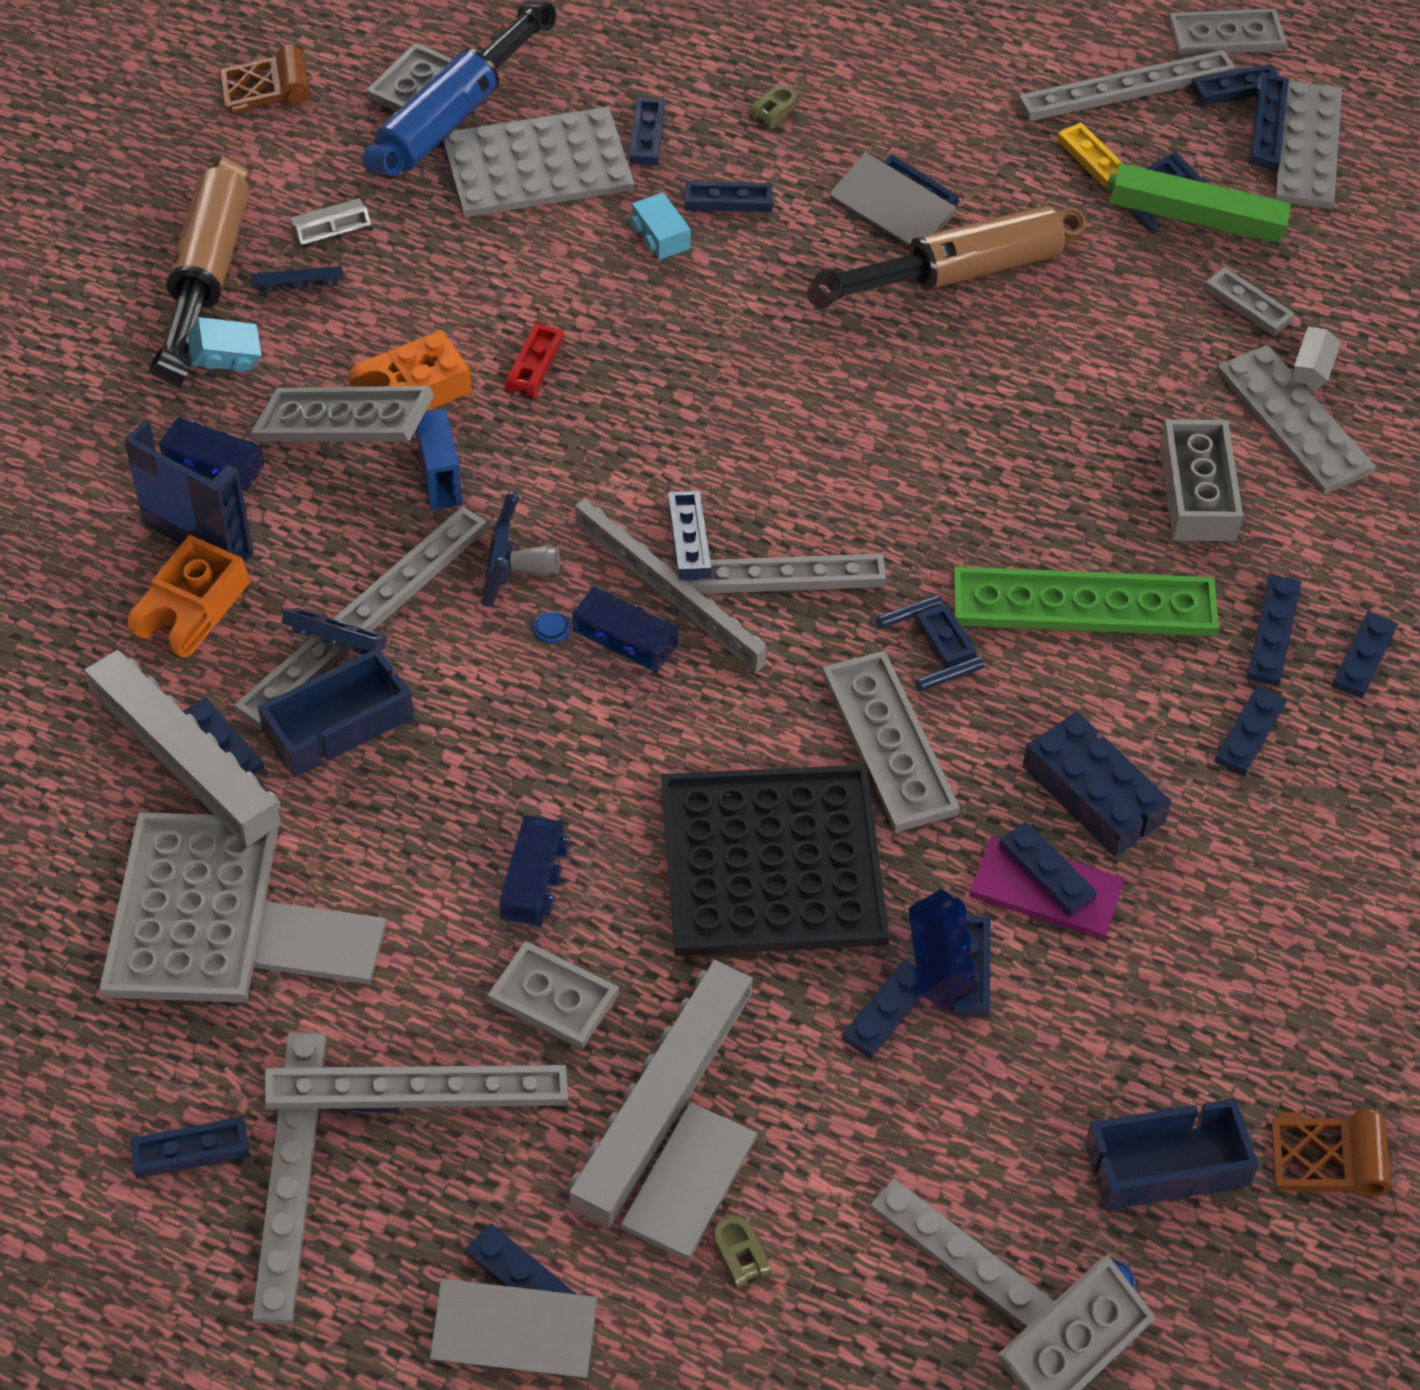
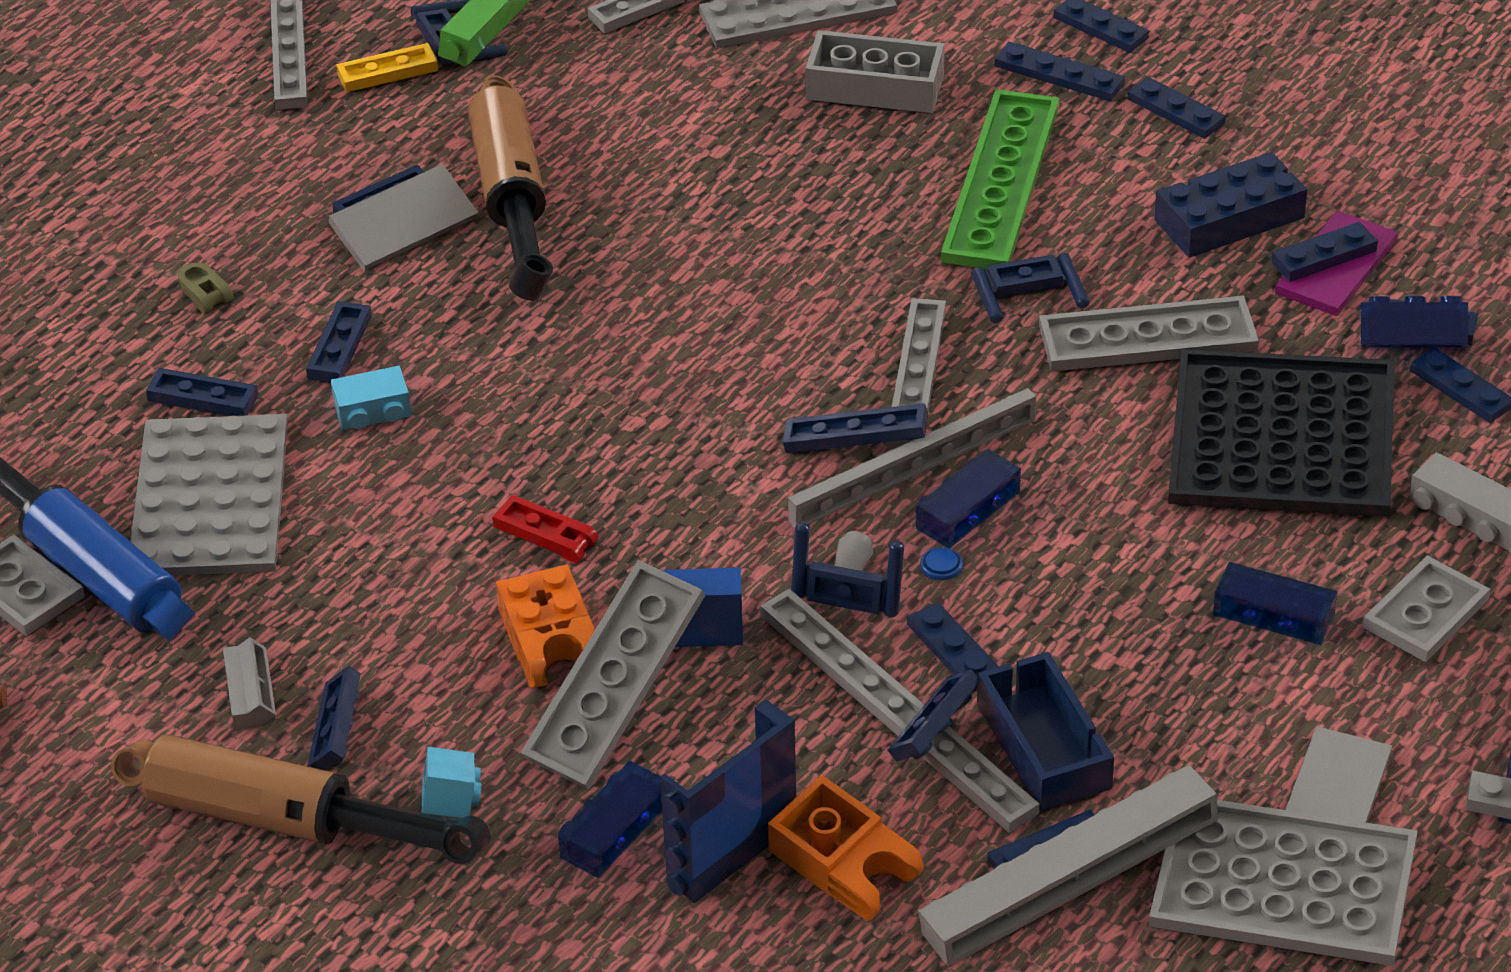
camera: 75 degrees left, 10 degrees down
(446, 647) = (949, 641): none -> dark blue plate

